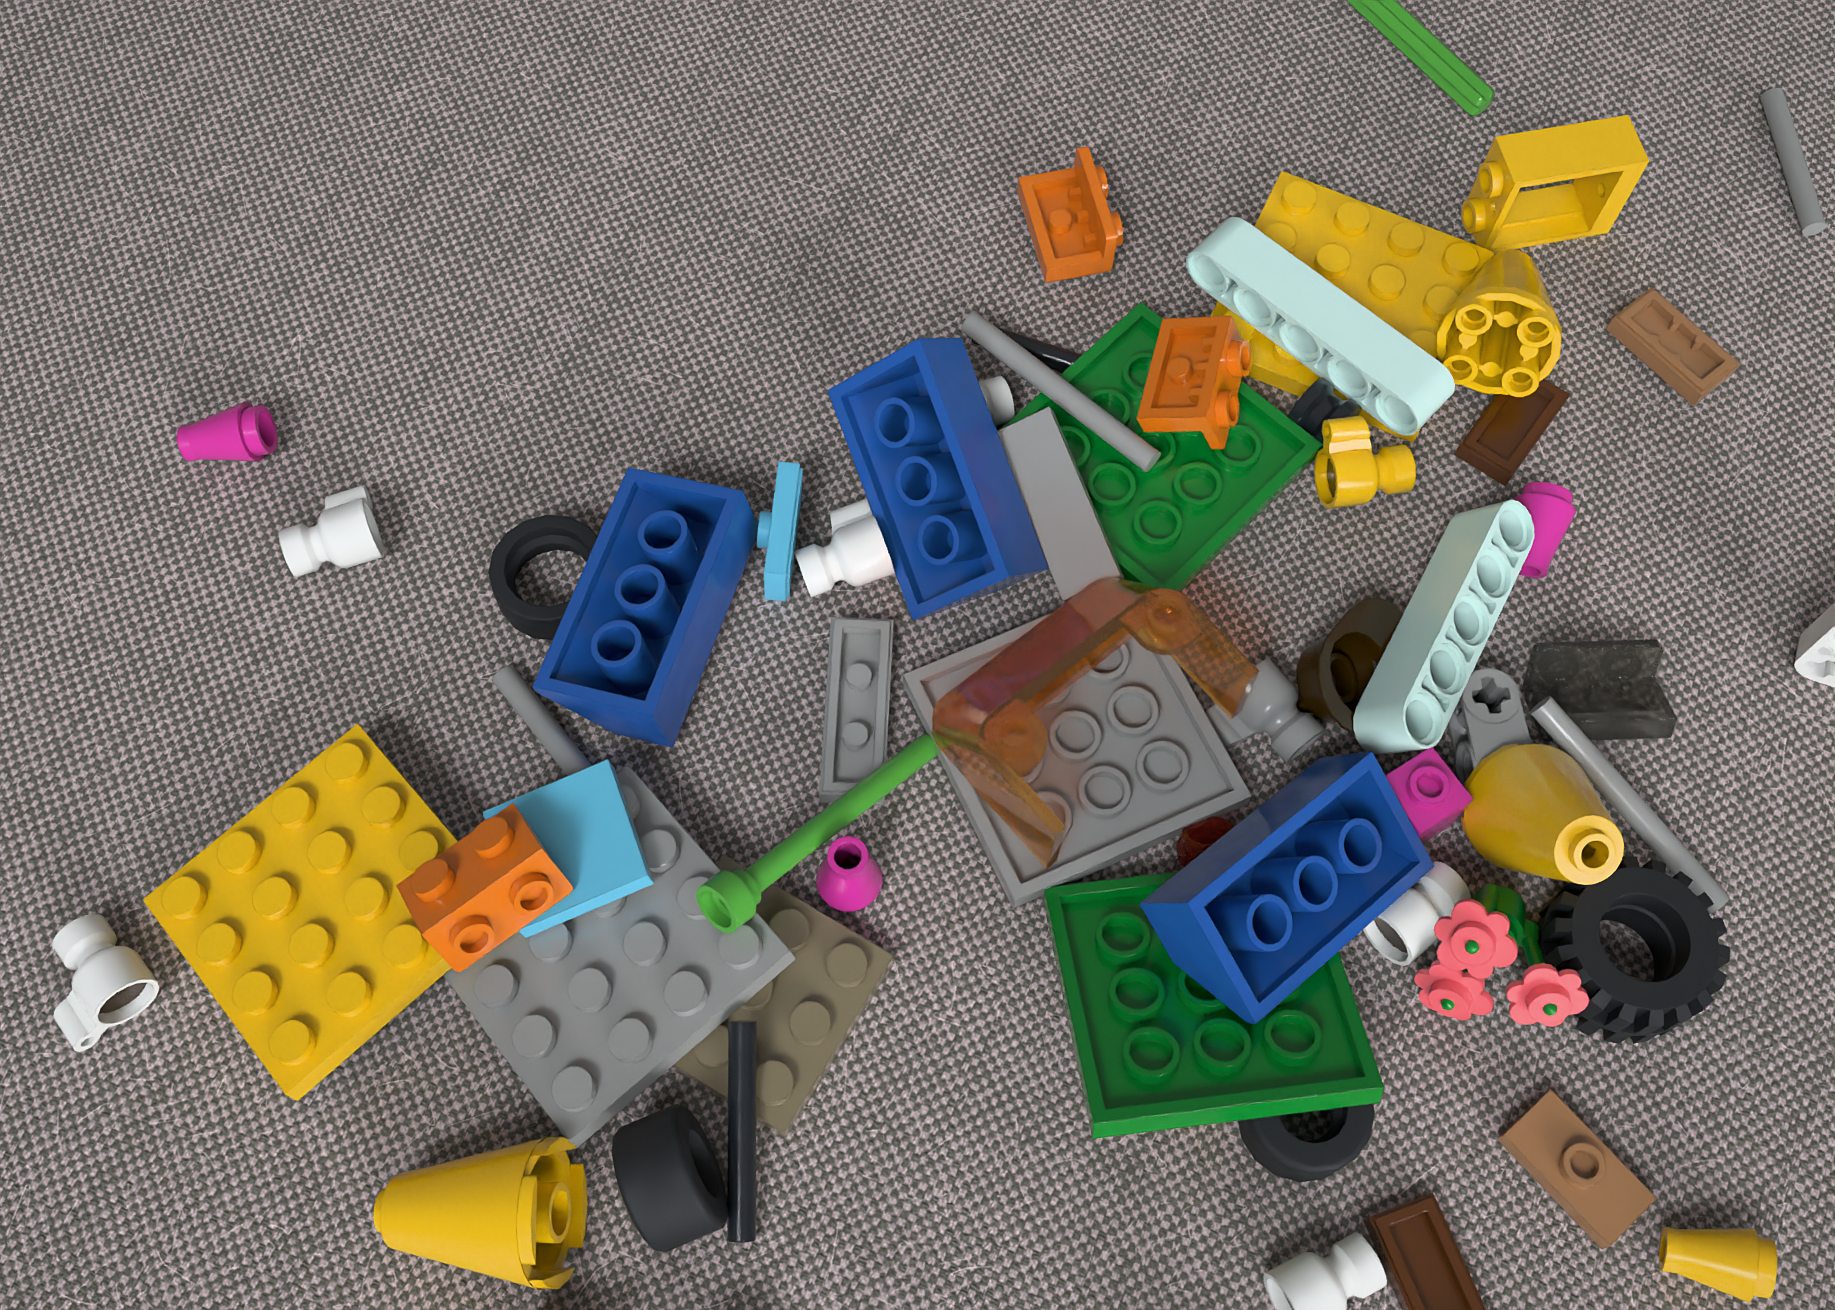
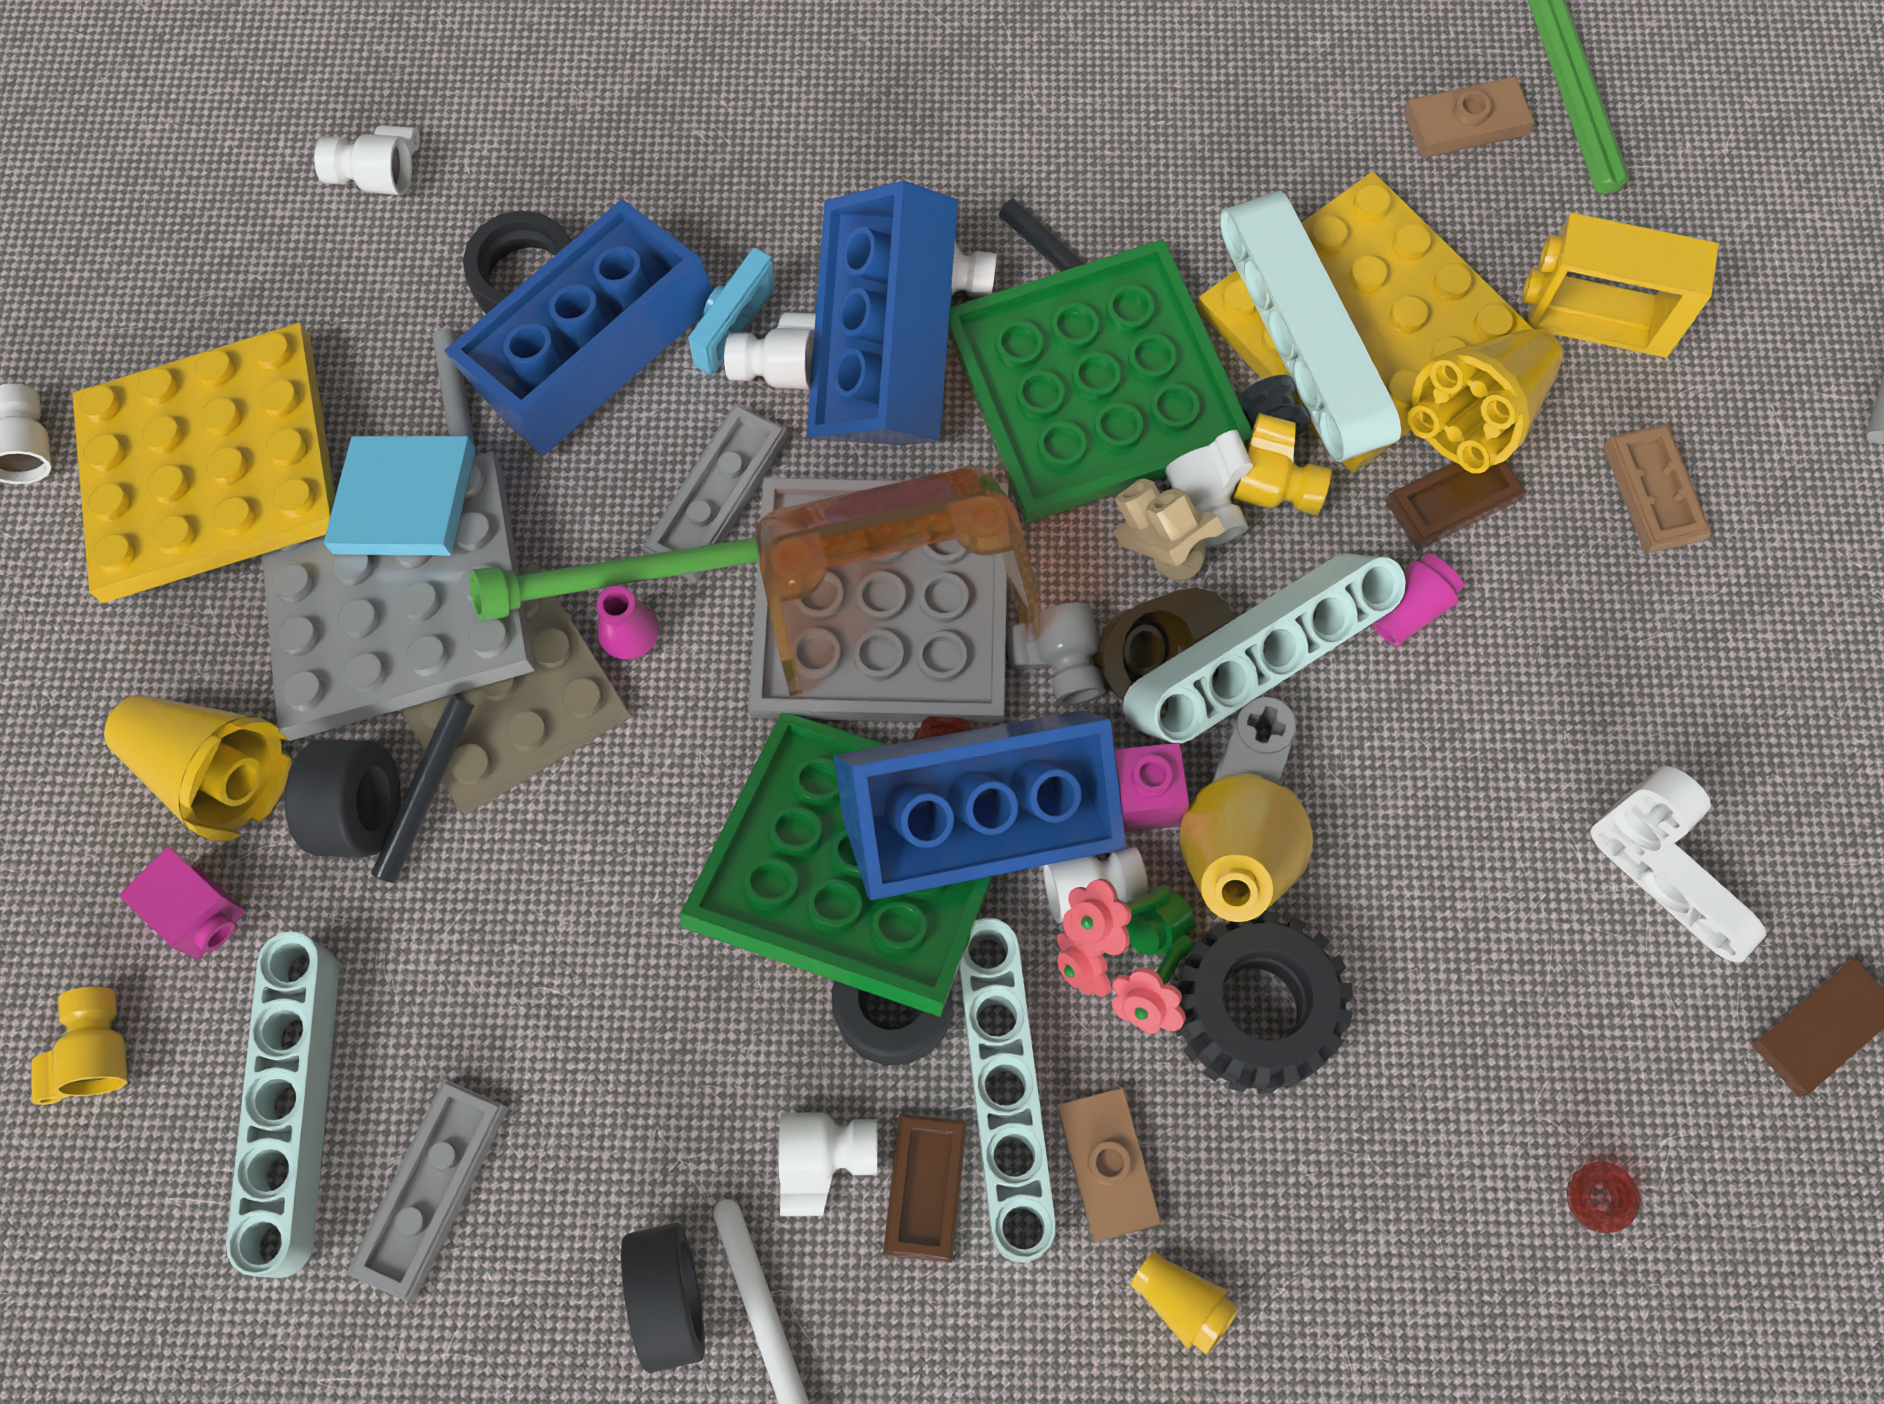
camera: 30 degrees right, 5 degrees up
(231, 435) = (333, 41): dark pink cone -> none
(483, 888) = (307, 495): orange bracket -> none
(1058, 503) = (977, 384): light grey tile -> none
(1061, 391) = (1039, 289): light grey bar -> none
(1071, 219) = (1140, 139): orange bracket -> none
(1195, 378) = (1165, 327): orange bracket -> none
(1301, 560) = (1165, 528): none -> tan hips
(1304, 506) = (1210, 480): none -> white piece
(1331, 93) = (1468, 117): none -> medium nougat plate
(1485, 1163) = (998, 1122): none -> light aqua beam
(1602, 687) = (1379, 768): clear smoke bracket -> none
(1626, 800) = (1342, 880): light grey bar -> none

